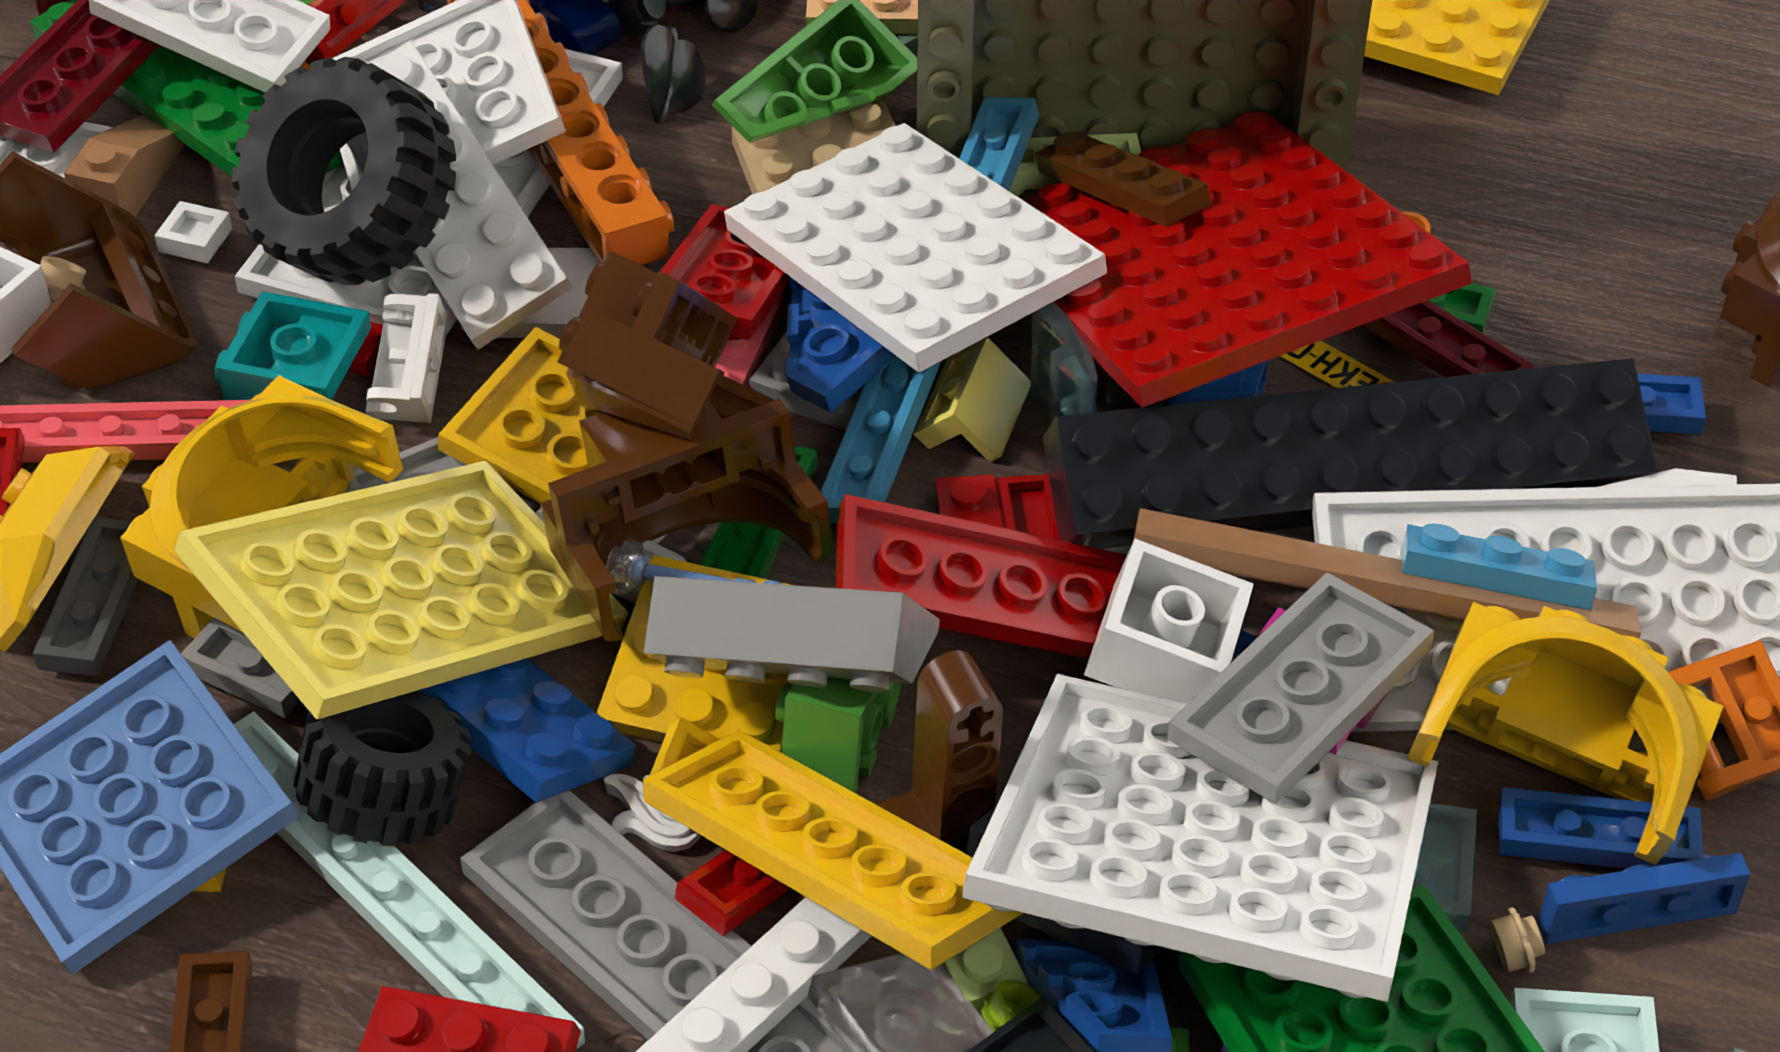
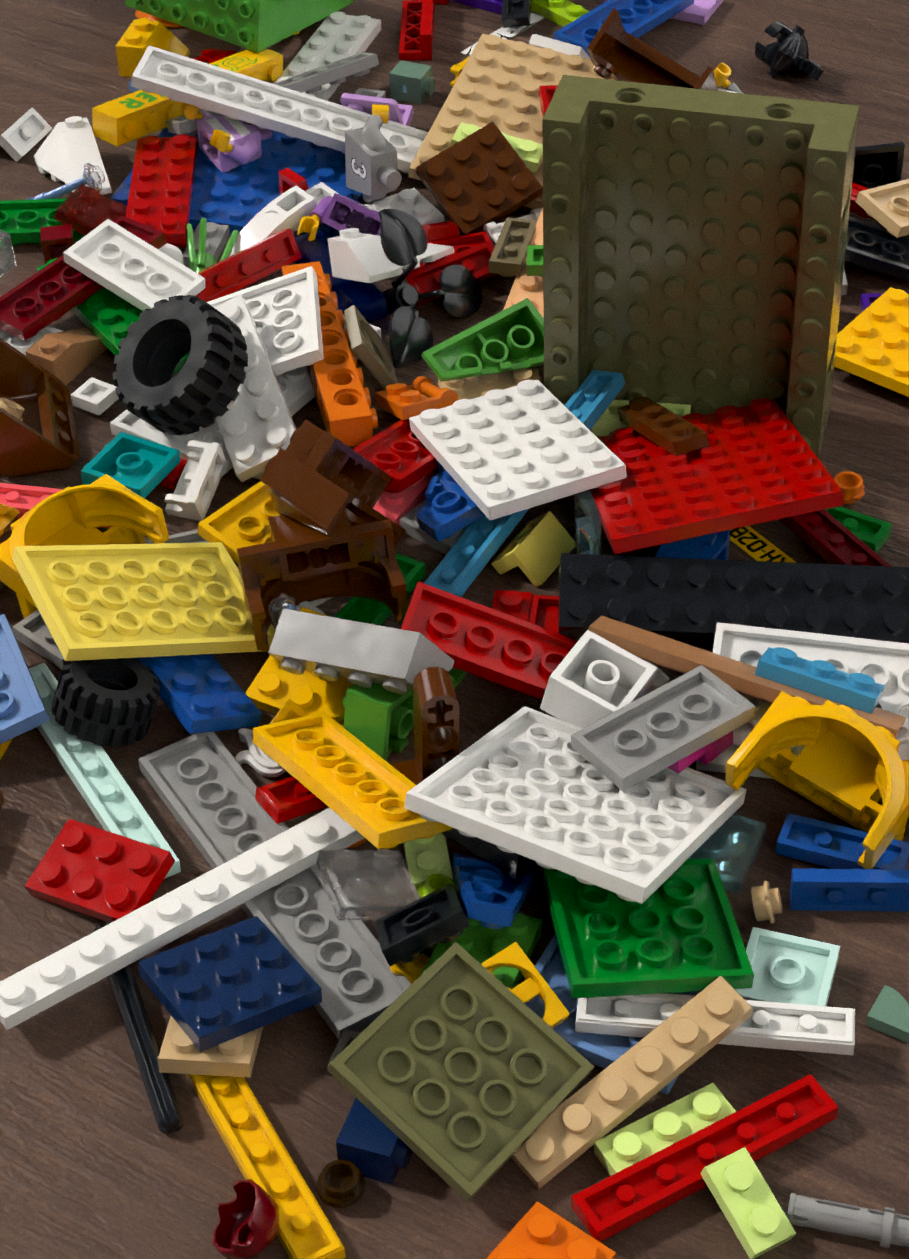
camera: 15 degrees right, 5 degrees down
(621, 101) = (369, 347): none -> dark tan piece
(705, 182) = (413, 399): none -> orange plate

